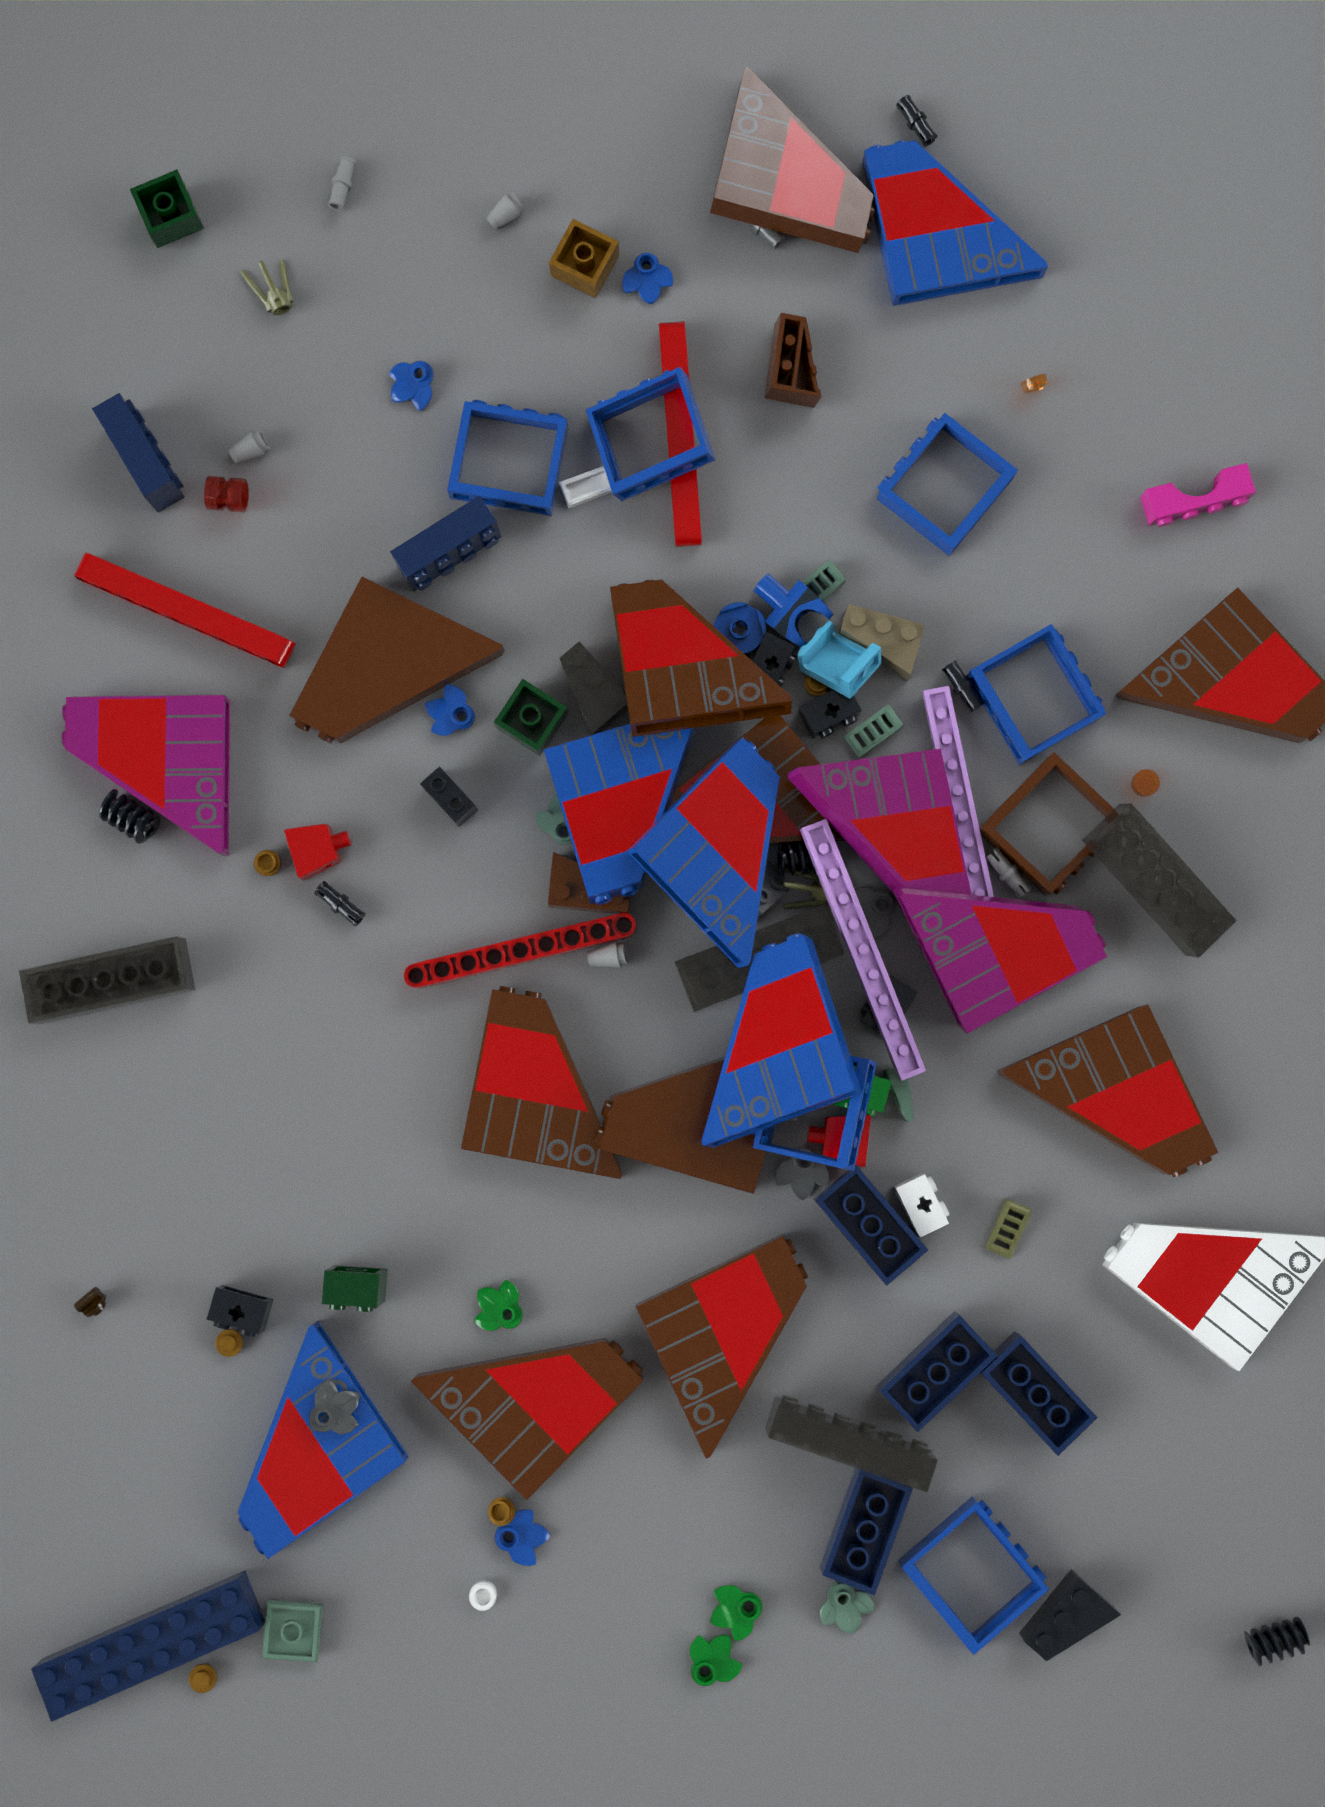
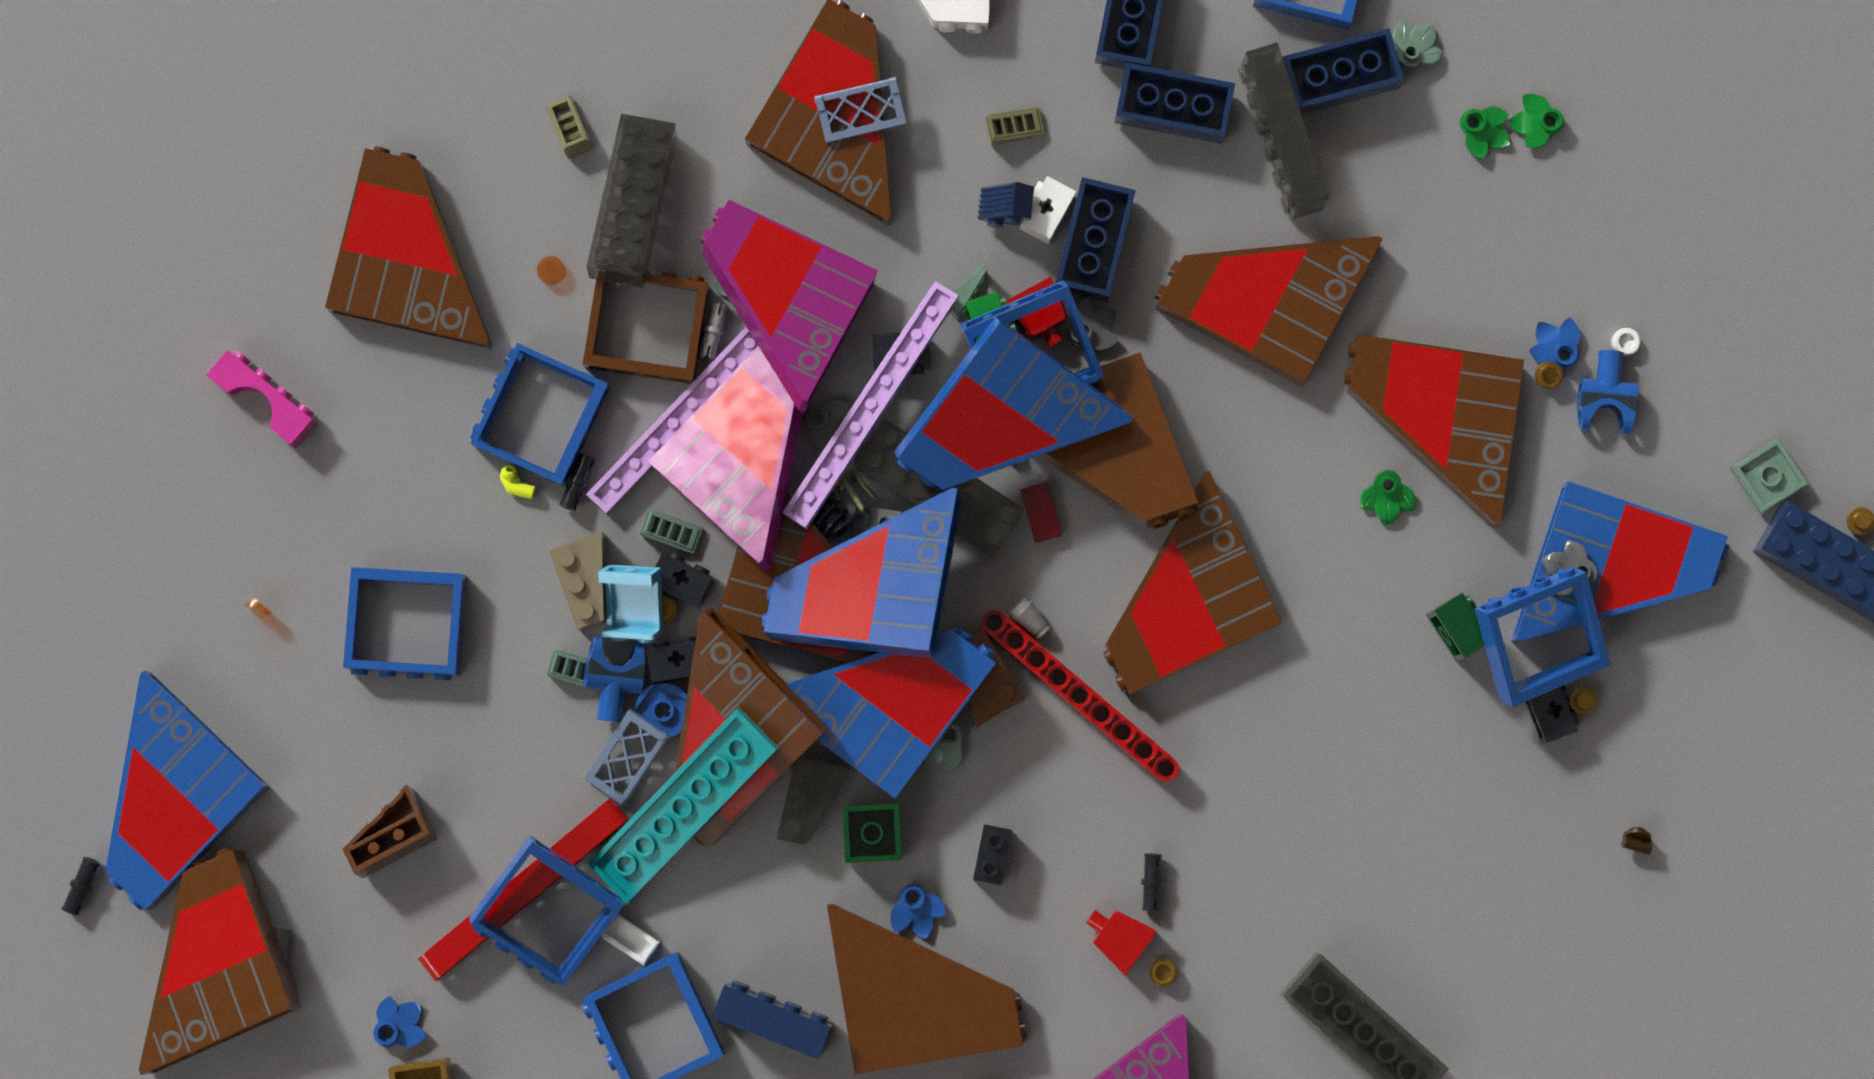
camera: 125 degrees left, 0 degrees up
(259, 1336) = (1561, 674): none -> blue window
(453, 1549) = (1608, 393): none -> blue connector
(655, 589) = (683, 805): none -> teal plate
(684, 1025) = (1040, 512): none -> dark red tile
(734, 603) = (604, 757): none -> sand blue window
(948, 1173) = (1006, 204): none -> dark blue brick
(995, 637) = (513, 483): none -> neon yellow arm
(1084, 1117) = (851, 131): none -> sand blue window
(1235, 873) = (577, 142): none -> olive slope

